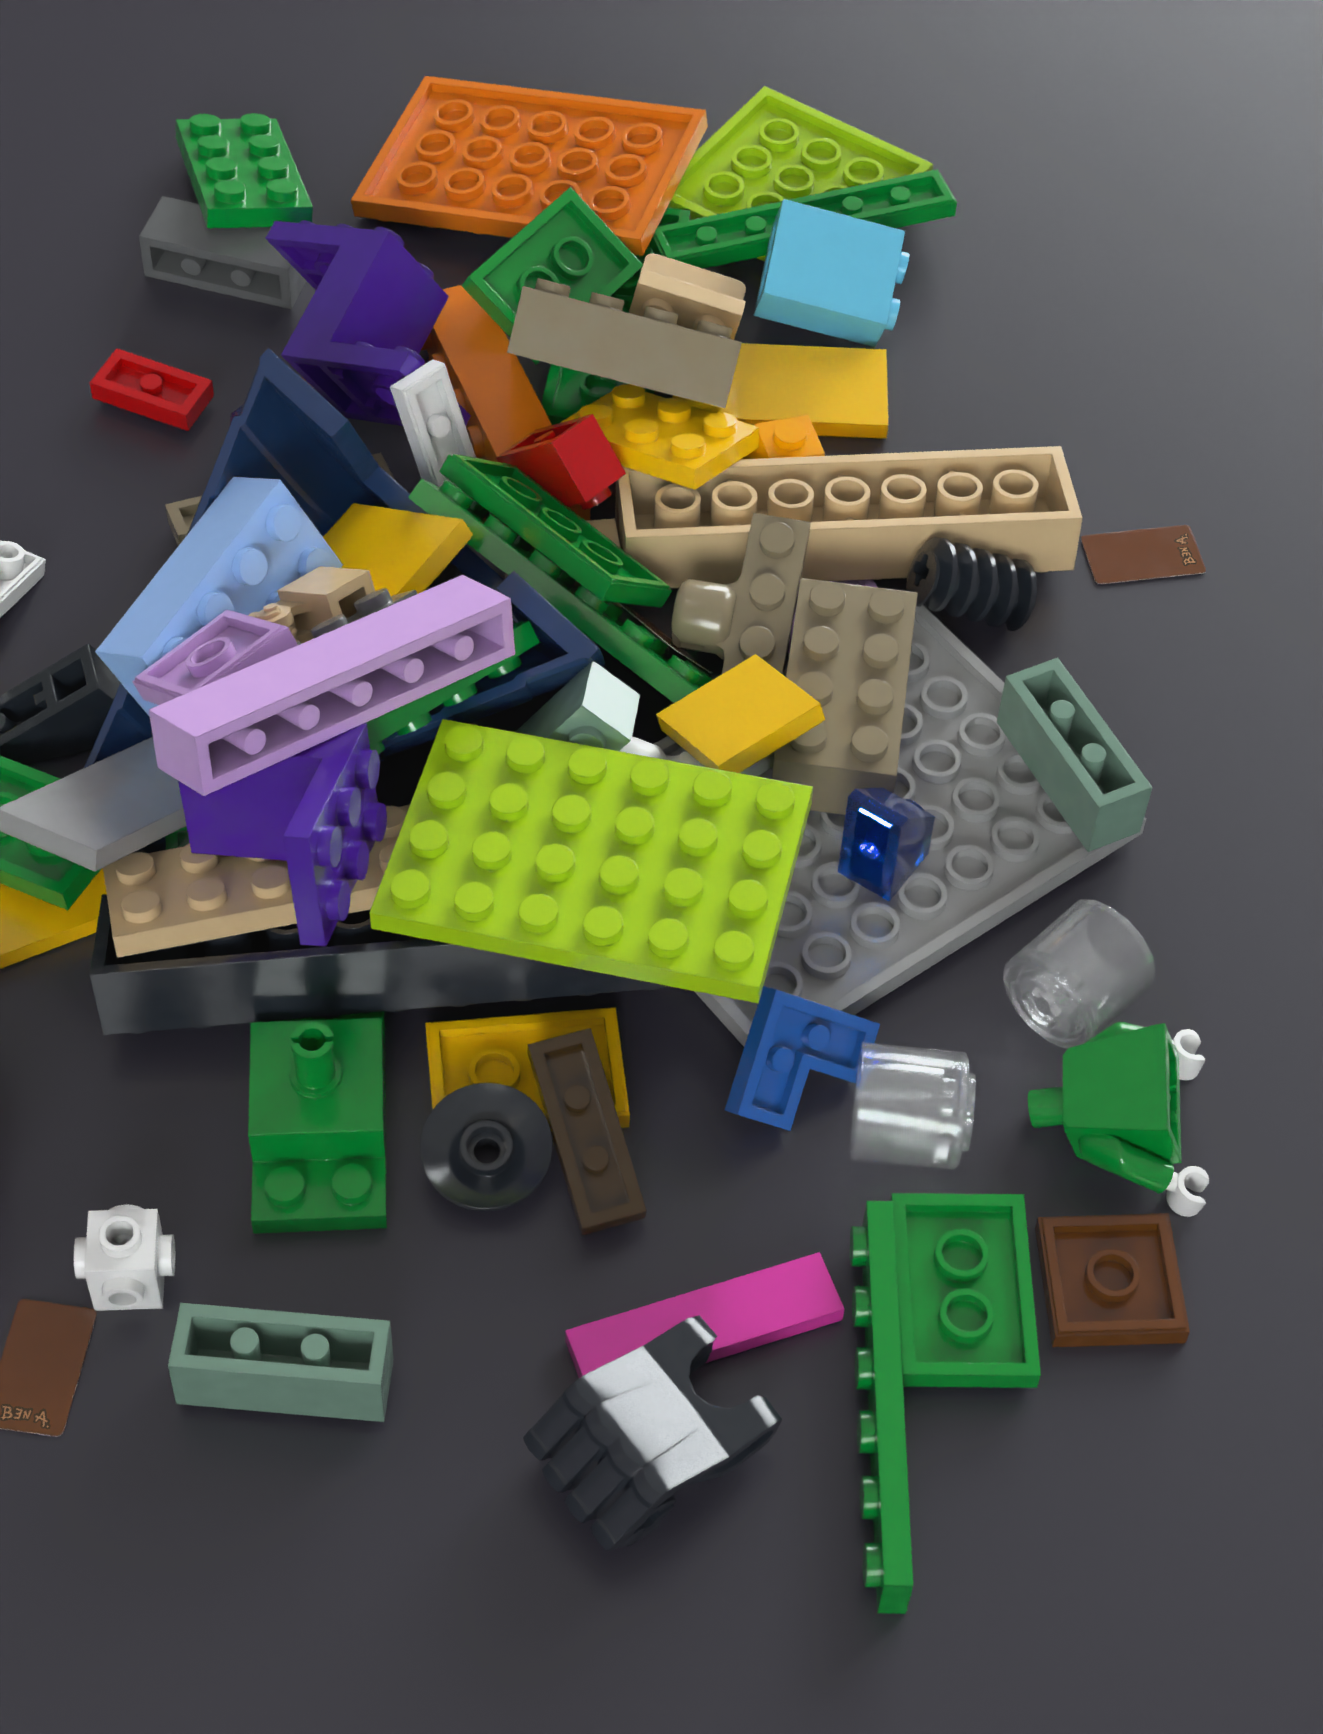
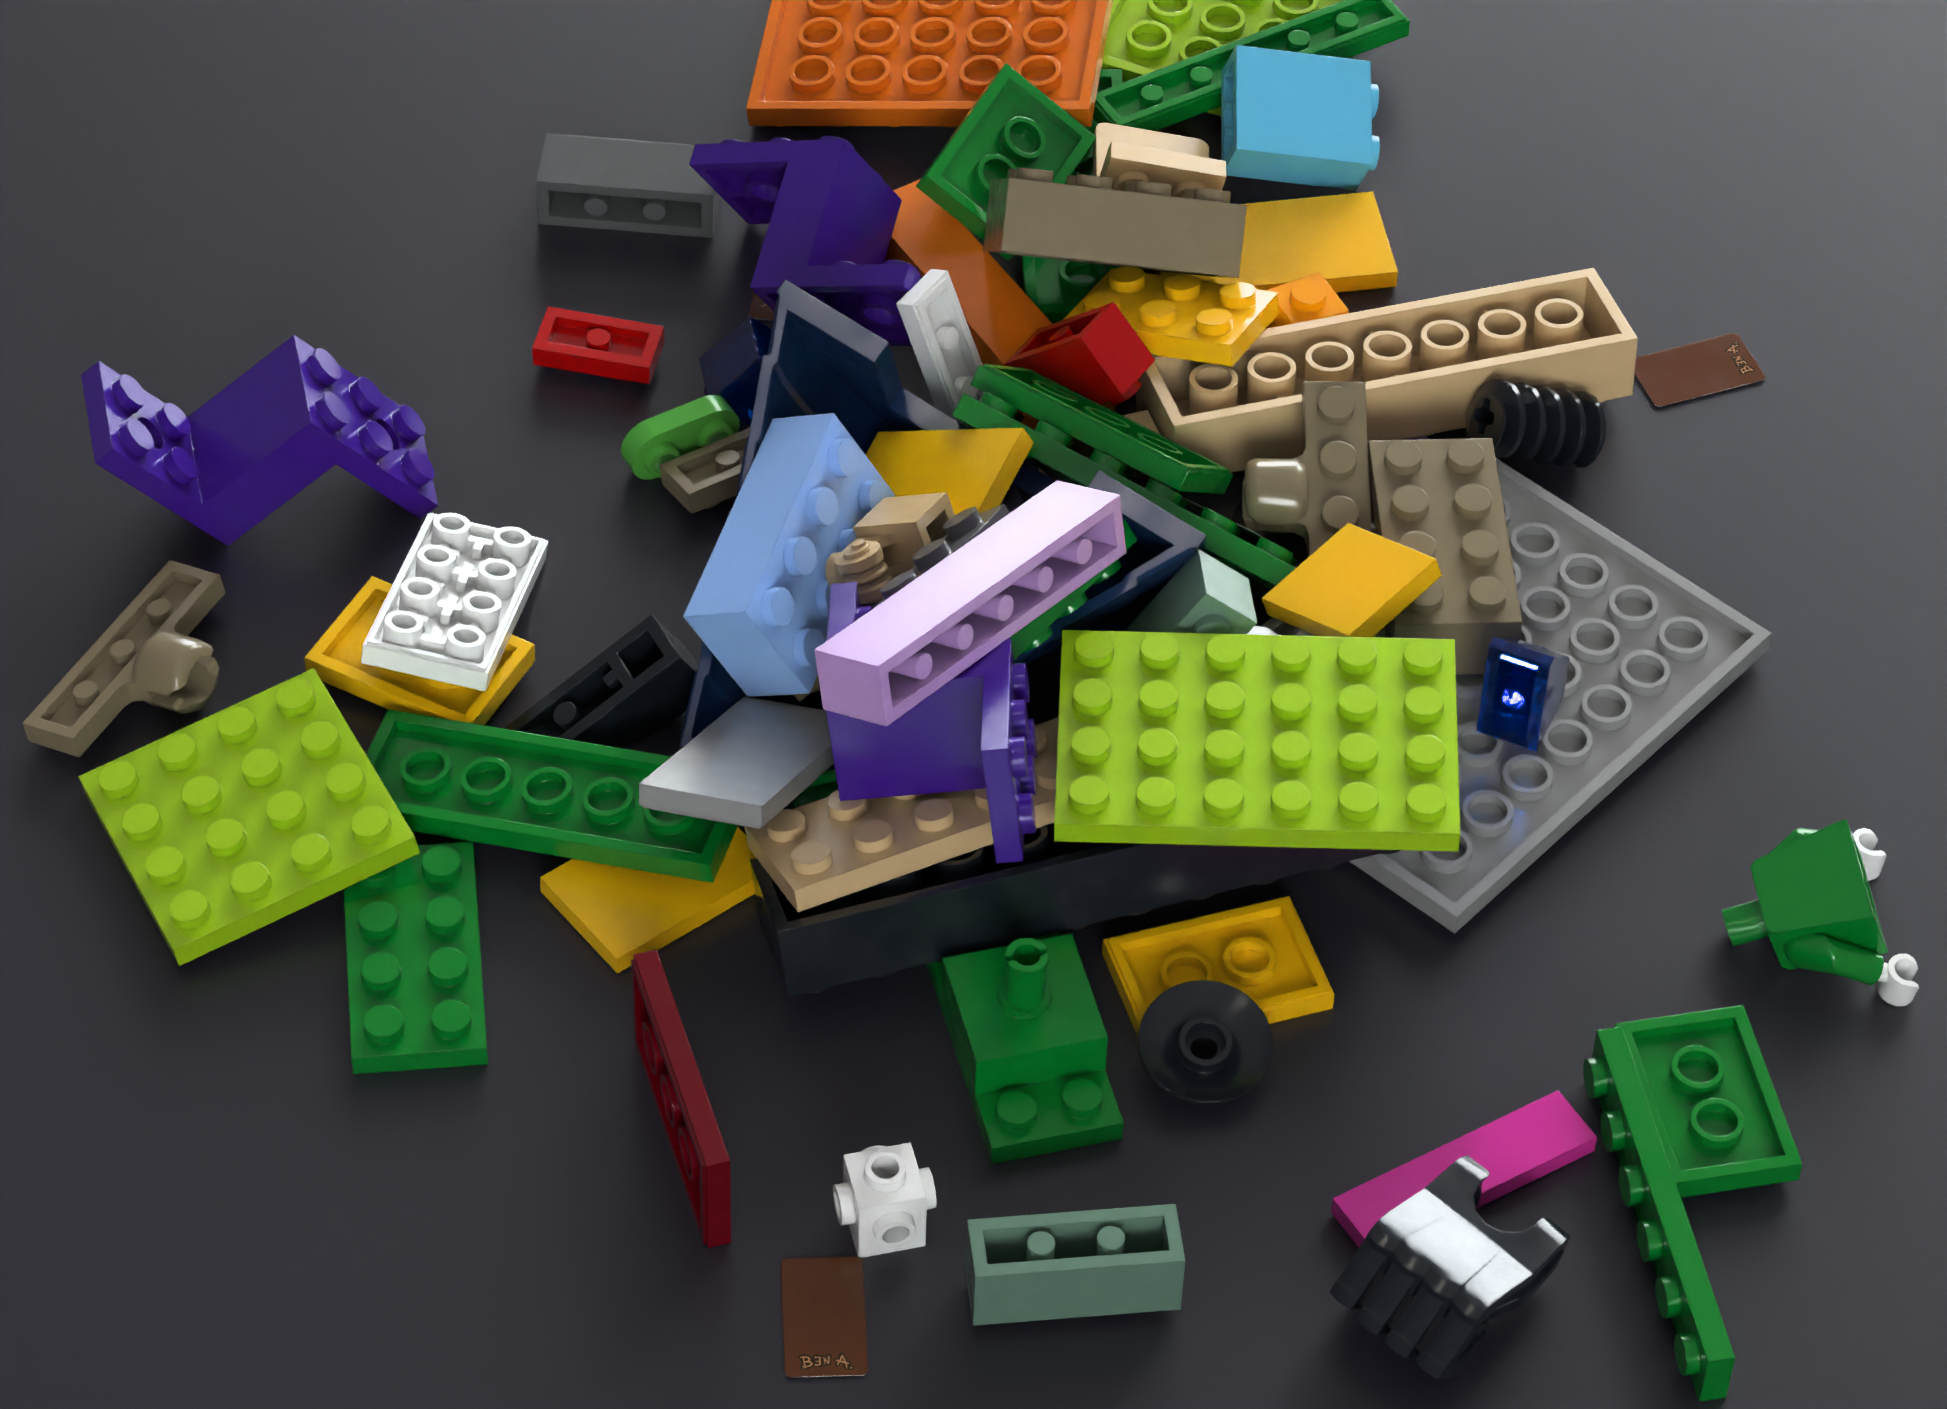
camera: 10 degrees left, 5 degrees down
(175, 480) = (677, 434): none -> bright green plate
(211, 653) = (825, 600): lavender tile -> none
(242, 171) = (621, 94): green plate -> none
(586, 1131) = (1301, 1012): dark brown plate -> none
(783, 1045) = (1477, 898): blue plate -> none
(912, 1106) = (1614, 938): clear piece -> none
(1073, 754) = (1688, 577): sand green brick -> none
(1079, 973) = (1745, 790): clear piece -> none
(1111, 1280) = (1844, 1073): reddish brown tile -> none

